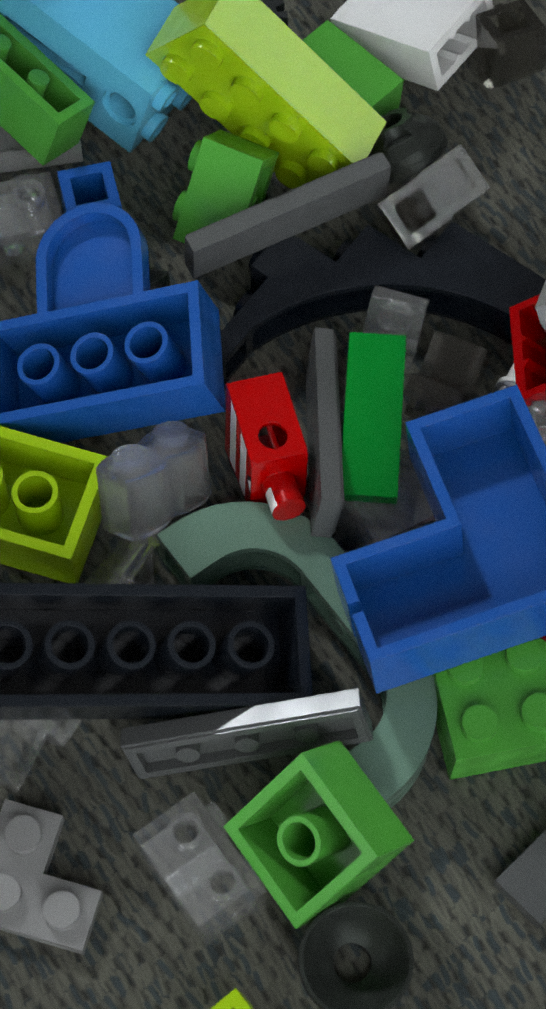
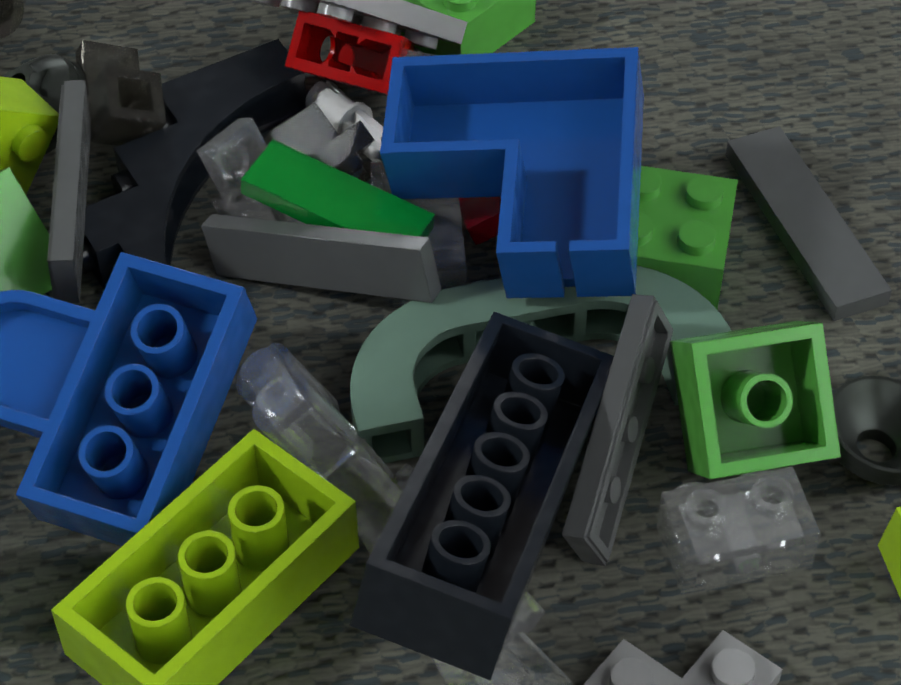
camera: 65 degrees left, 15 degrees down
(271, 465) = (316, 300): red torso -> none

